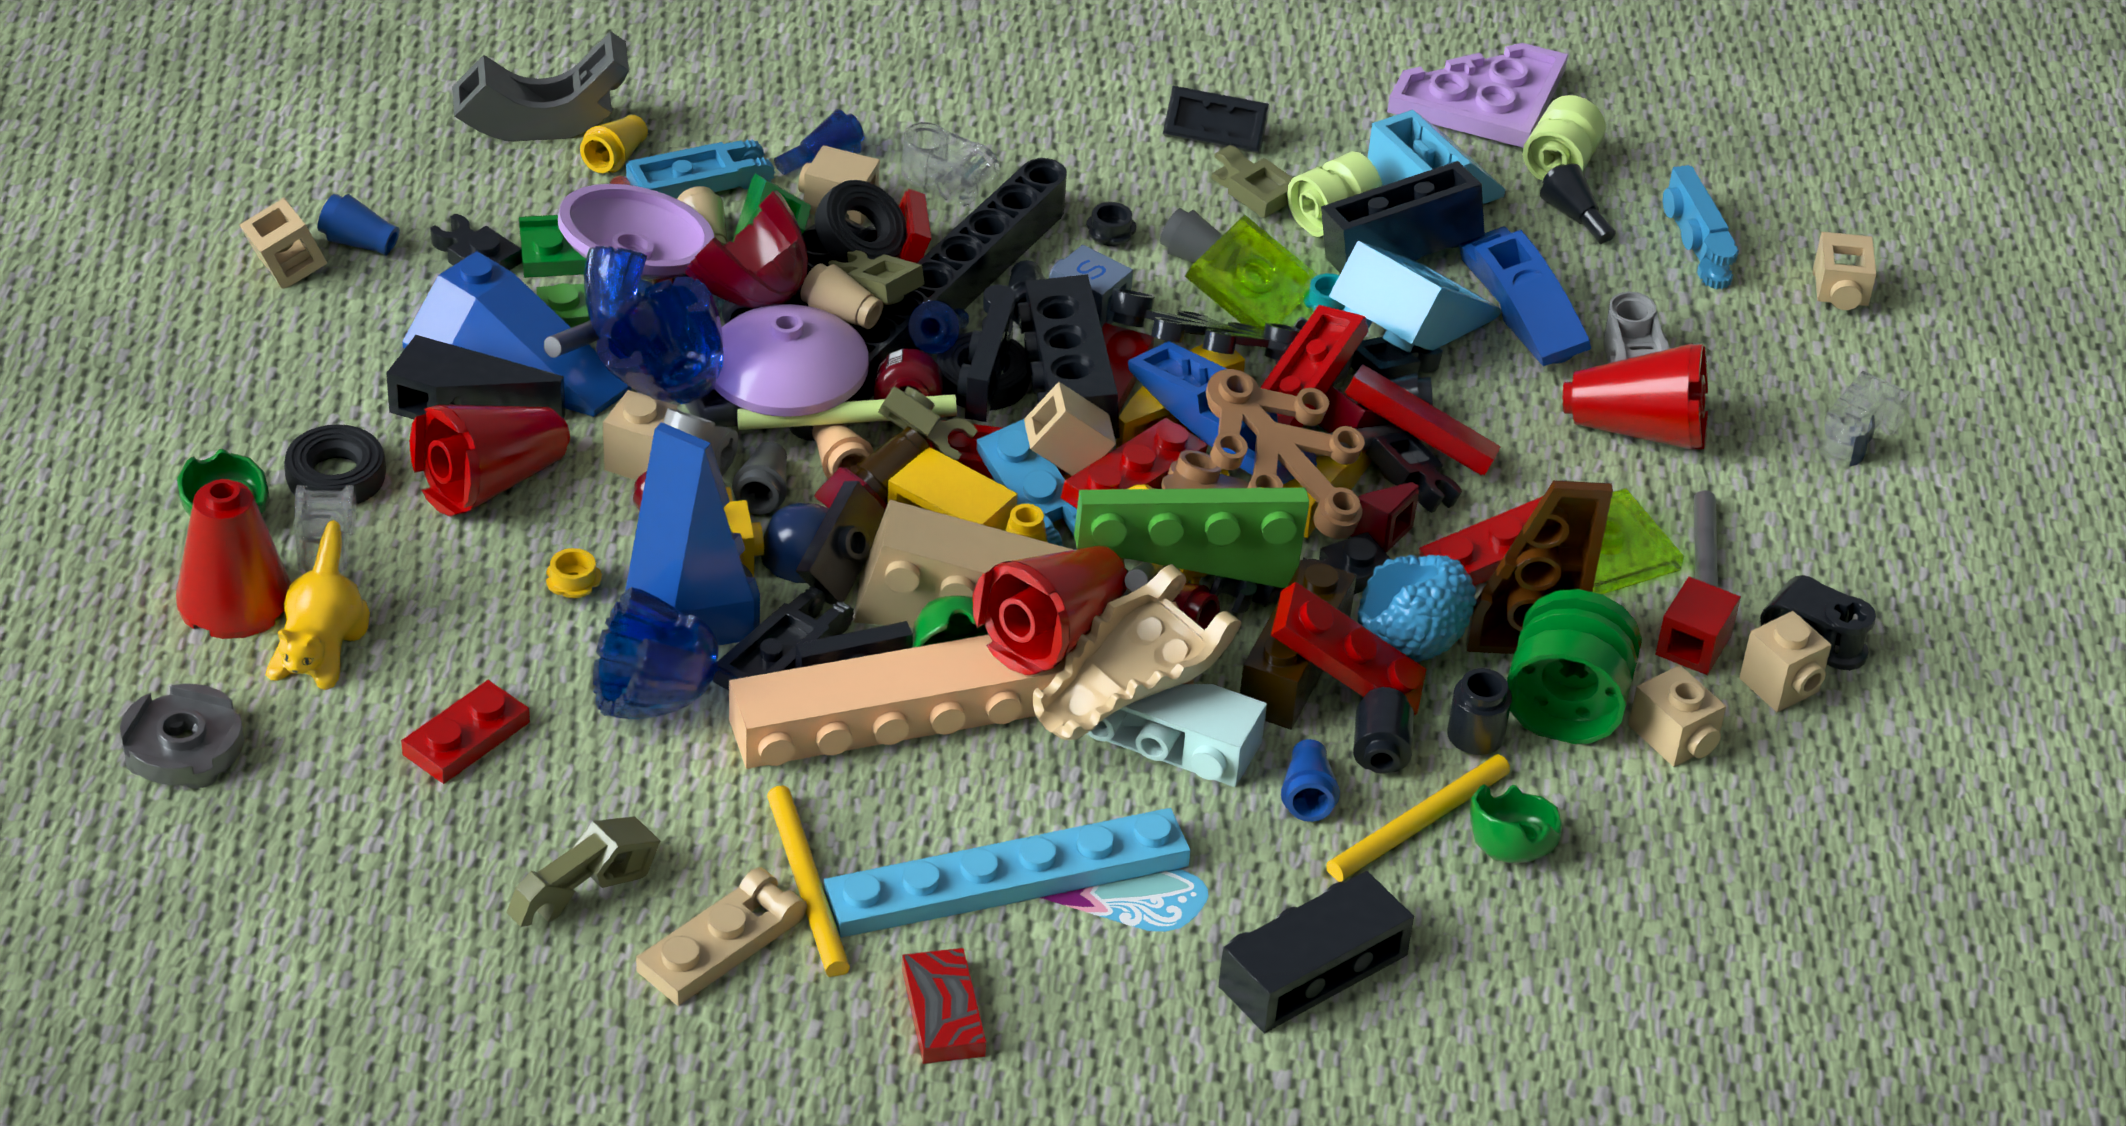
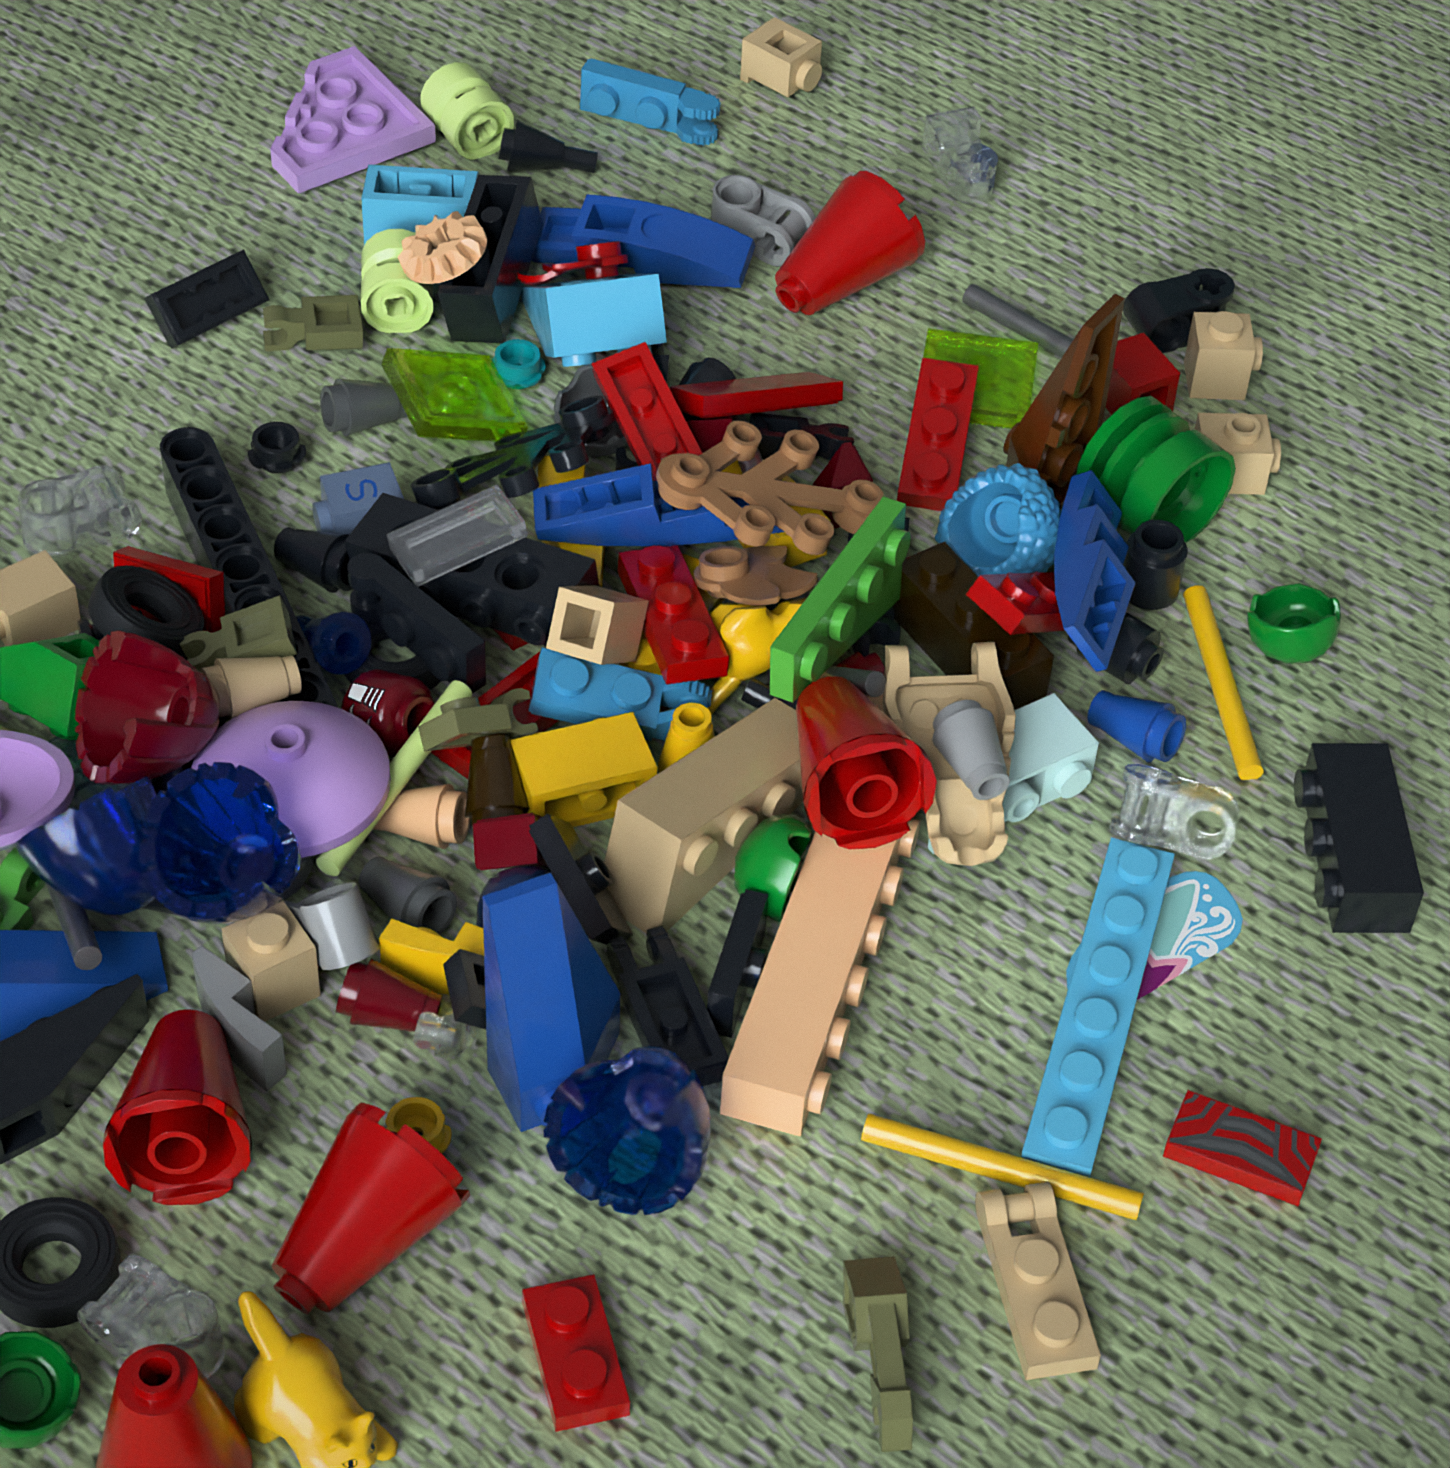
camera: 55 degrees left, 5 degrees up
(475, 569) = (364, 1210): none -> red cone
(580, 446) = (229, 999): none -> light grey slope
(1070, 320) = (457, 535): none -> clear tile
(1123, 654) = (971, 746): none -> light grey cone
(1228, 830) = (1170, 812): none -> clear piece
(1357, 181) = (458, 243): none -> light nougat gear
(1401, 658) = (1089, 569): none -> blue slope
(1462, 270) = (597, 259): none -> red plate

